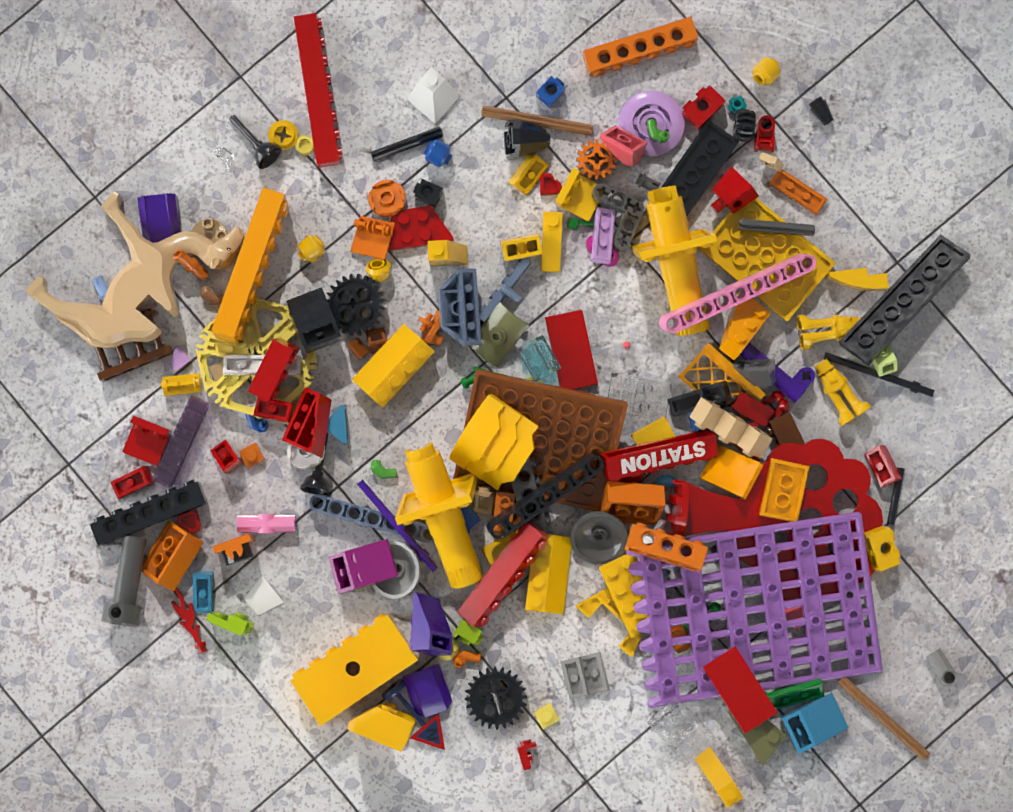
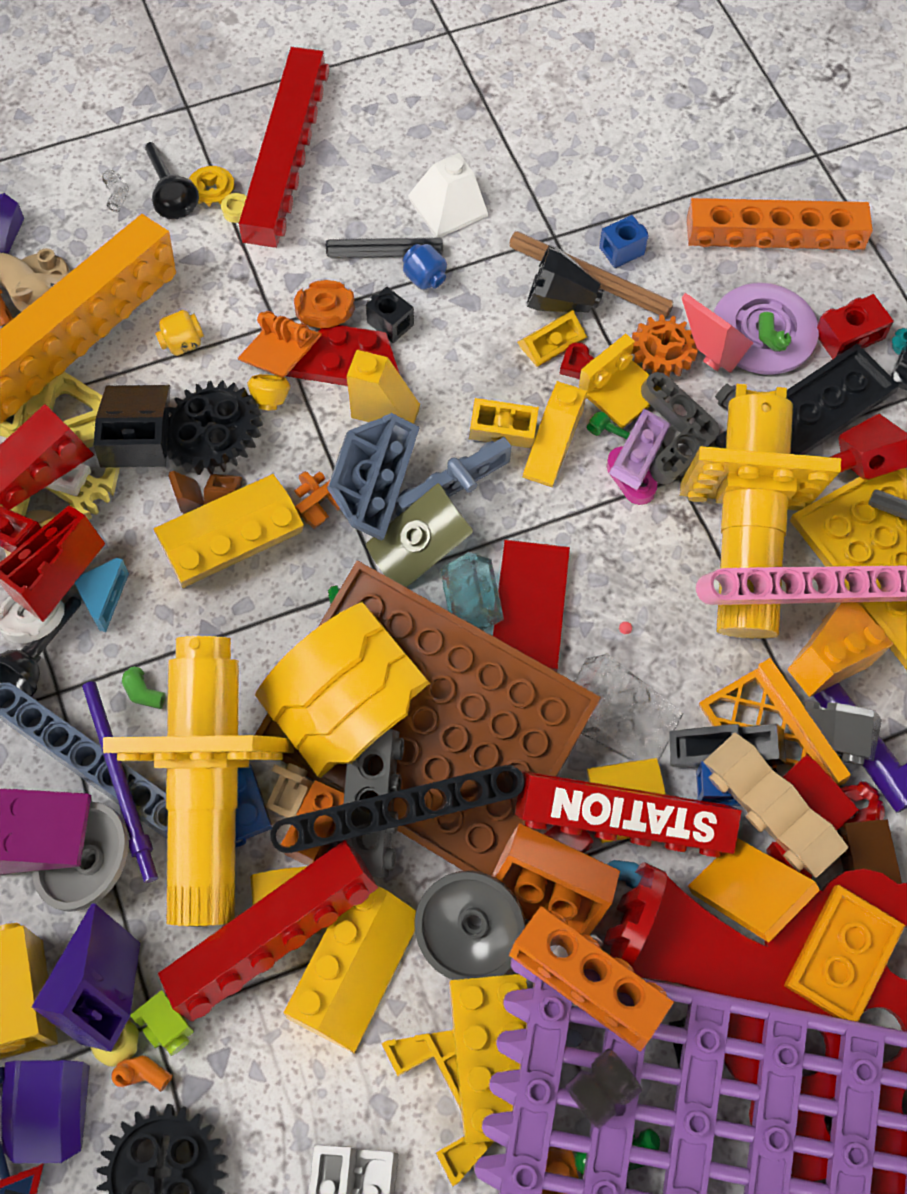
camera: 15 degrees right, 20 degrees down
(687, 595) = (603, 1088): none -> clear smoke wheel

